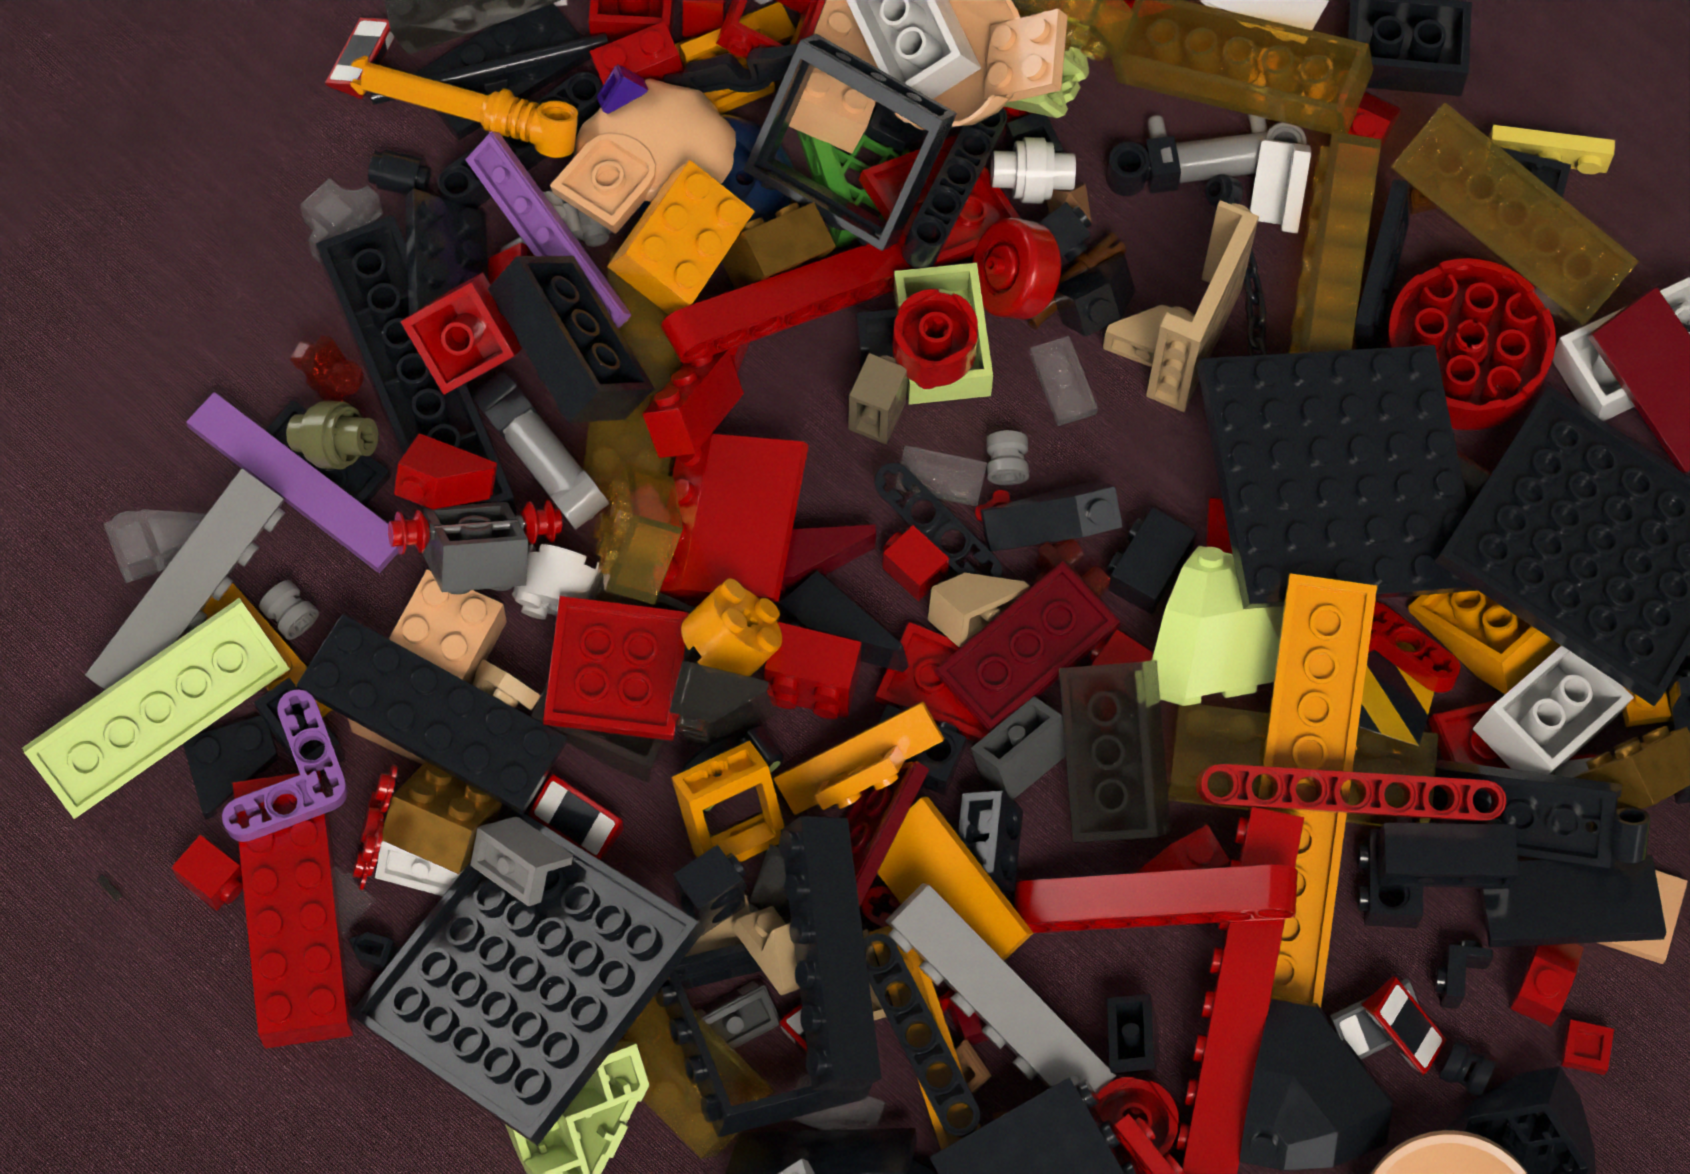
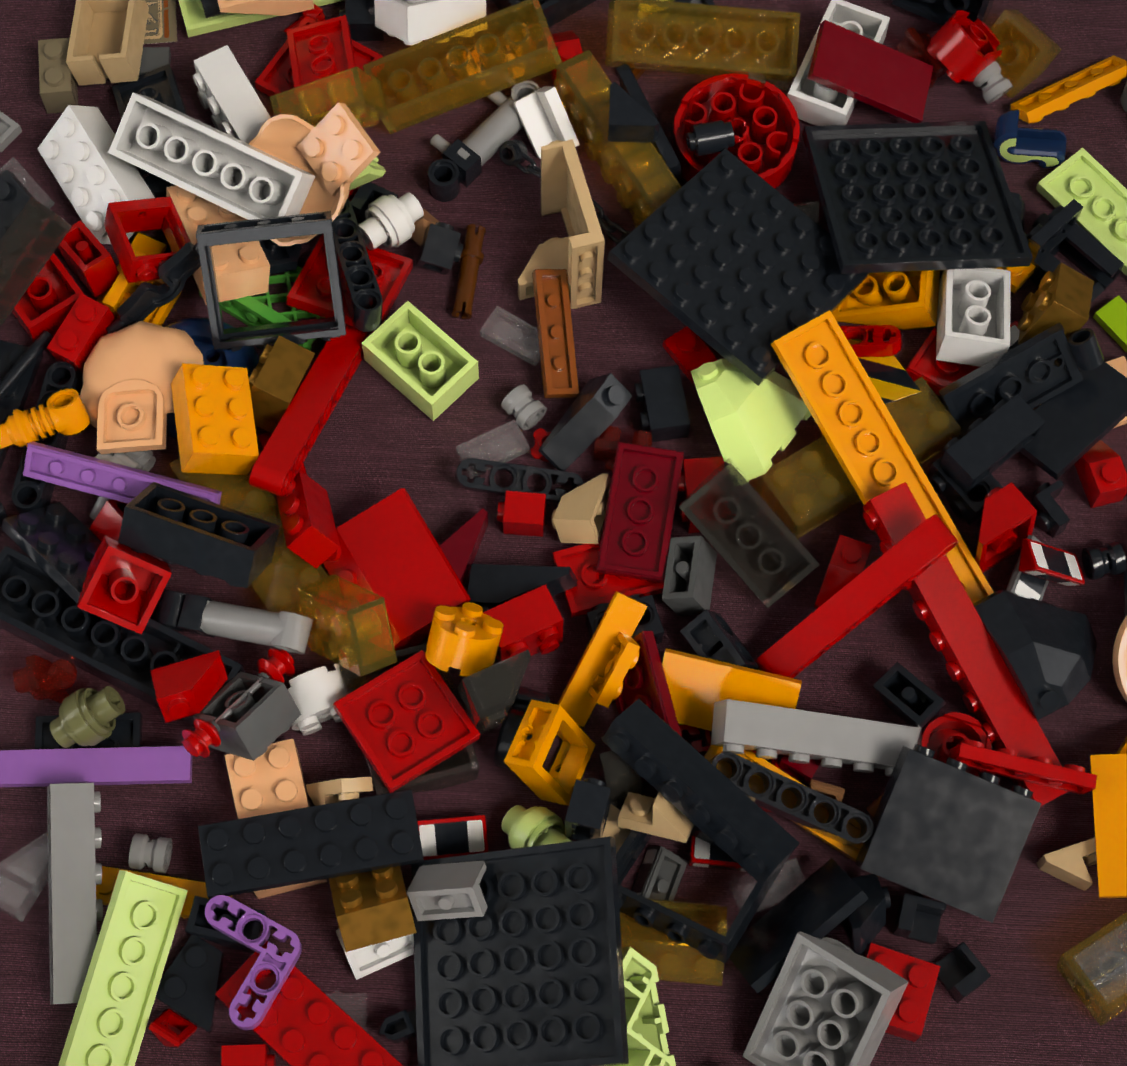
camera: 40 degrees left, 0 degrees up
(174, 786) = (172, 1029): none -> red slope
(373, 827) = (341, 954): red plant -> none
(620, 89) = (89, 356): dark purple slope -> none
(653, 865) = (533, 827): none -> yellowish green piece
(875, 333) = (381, 395): black panel -> none
(877, 398) = (417, 428): dark tan brick -> none
(953, 341) = (428, 363): red brick -> none
(1017, 268) = (434, 284): red wheel -> none
(1096, 296) = (492, 271): black slope -> none
(1099, 407) = (555, 333): none -> dark orange plate
(1349, 239) = (629, 119): none -> black slope
(1371, 787) = (902, 454): red beam -> none
(1380, 946) = (1004, 523): none -> red slope
(1428, 322) = (710, 137): none -> black brick

